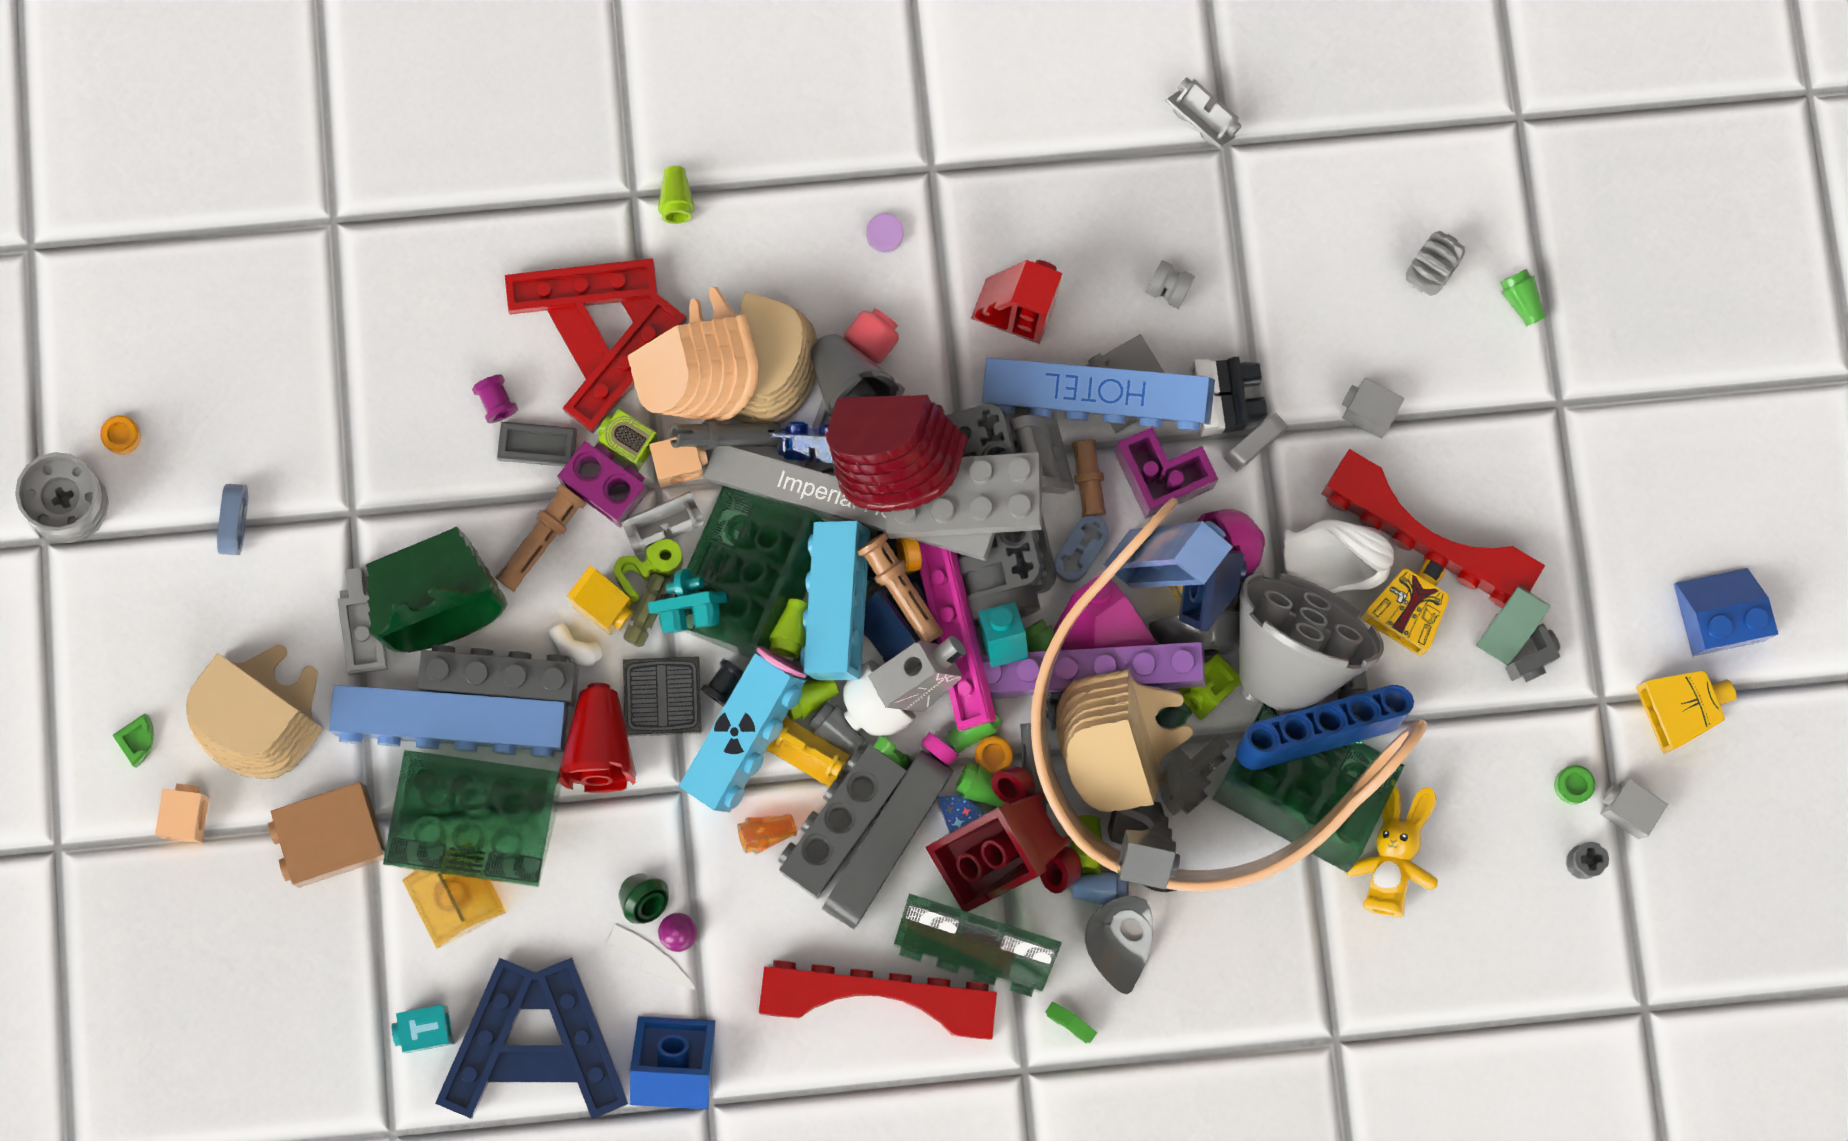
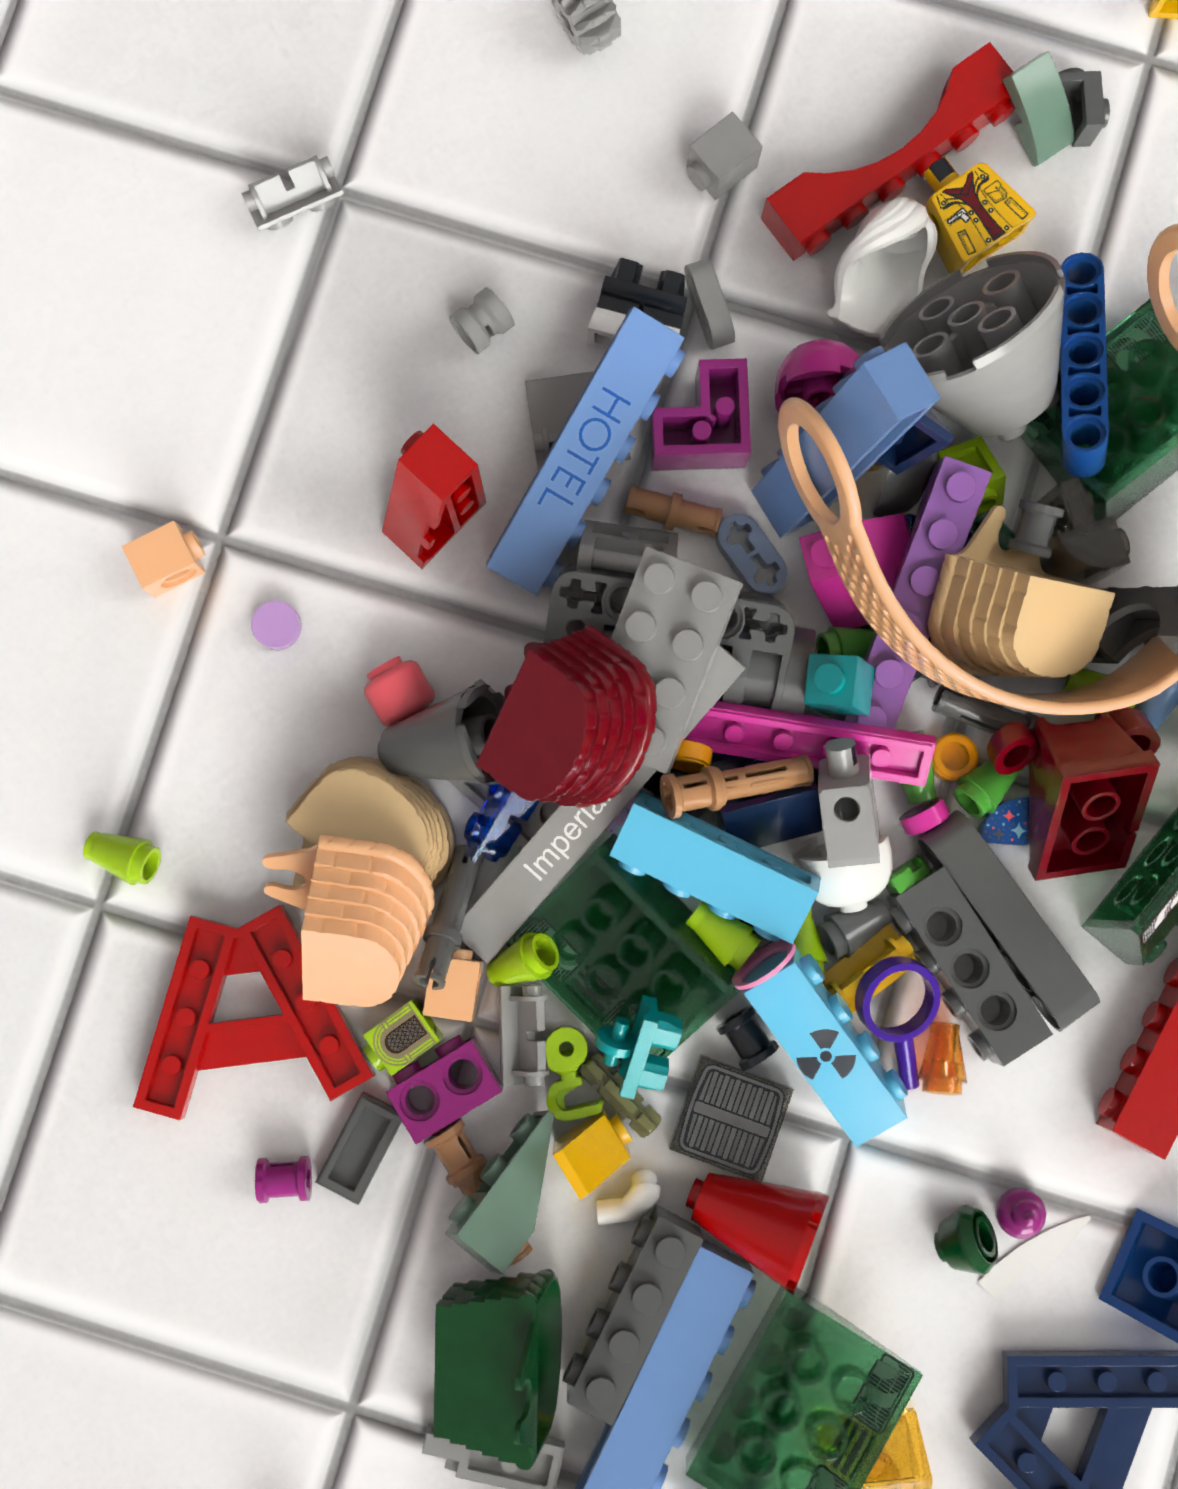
camera: 65 degrees left, 5 degrees up
(539, 554) = (505, 1206): none -> sand green slope
(717, 502) = (526, 960): none -> lime cone
(772, 793) = (902, 1034): none -> dark purple piece
(899, 136) = (165, 558): none -> light nougat brick
(1177, 730) = (1035, 528): none -> dark grey bush

